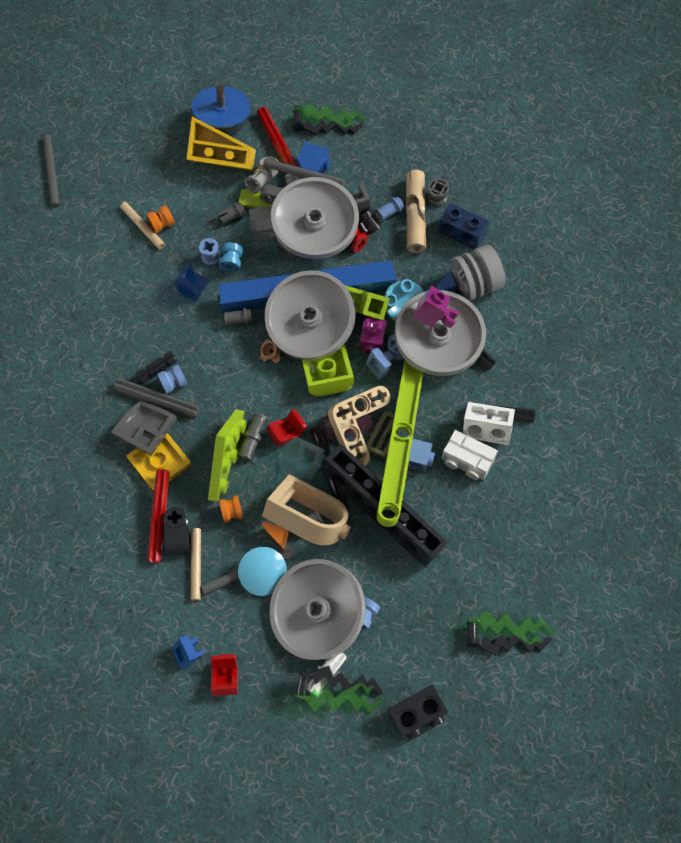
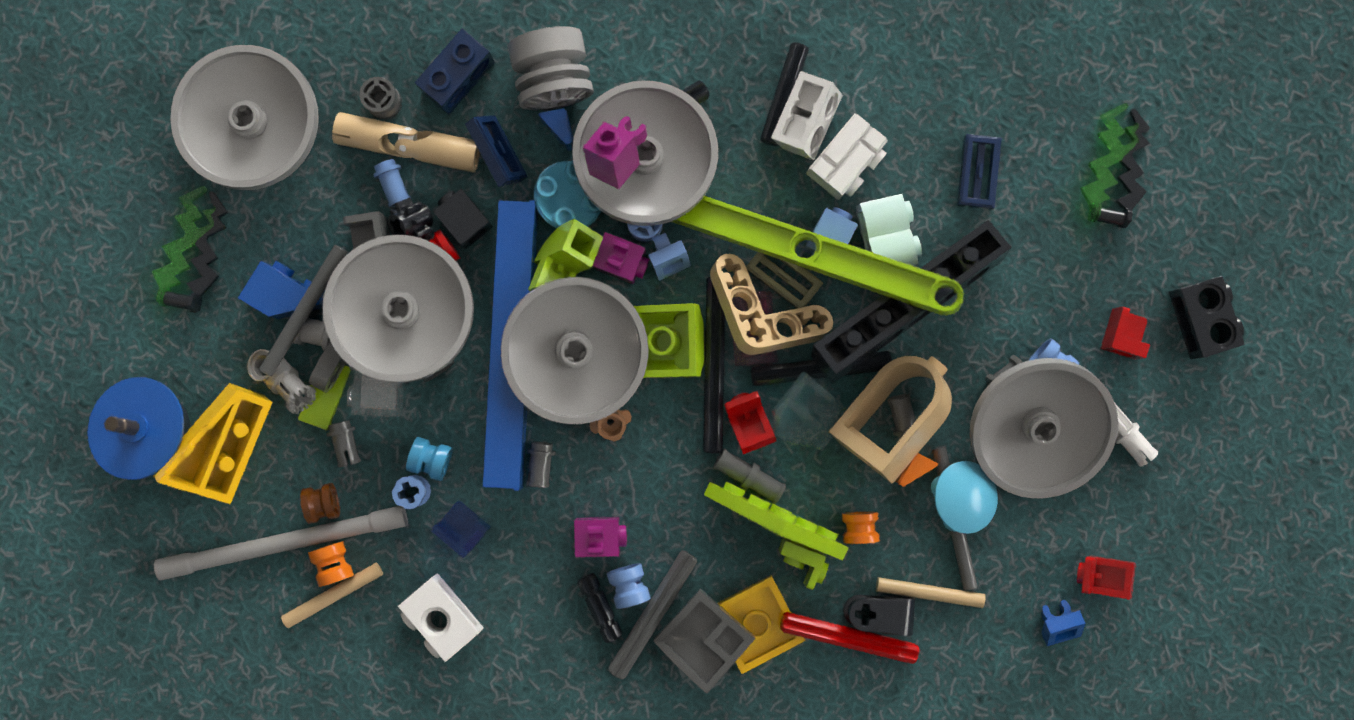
camera: 85 degrees left, 20 degrees up
(134, 292) = (438, 596): none -> white brick
(188, 237) = (190, 562): none -> light grey piece
(195, 207) = (320, 503): none -> reddish brown wheel
(199, 356) = (599, 536): none -> magenta brick
(201, 486) = (799, 555): none -> lime bracket
(275, 136) = (212, 343): red axle -> none
(310, 405) = (713, 372): none -> black axle
(348, 692) = (1162, 407): piece -> none
(377, 247) = (462, 217): none -> black brick
(395, 659) = (1125, 334): none -> red panel
(408, 127) = (244, 117): none -> light grey dish
(422, 254) = (496, 150): none -> dark blue tile
(427, 489) = (887, 229): none -> light aqua brick
(481, 552) = (975, 201): none -> dark blue tile

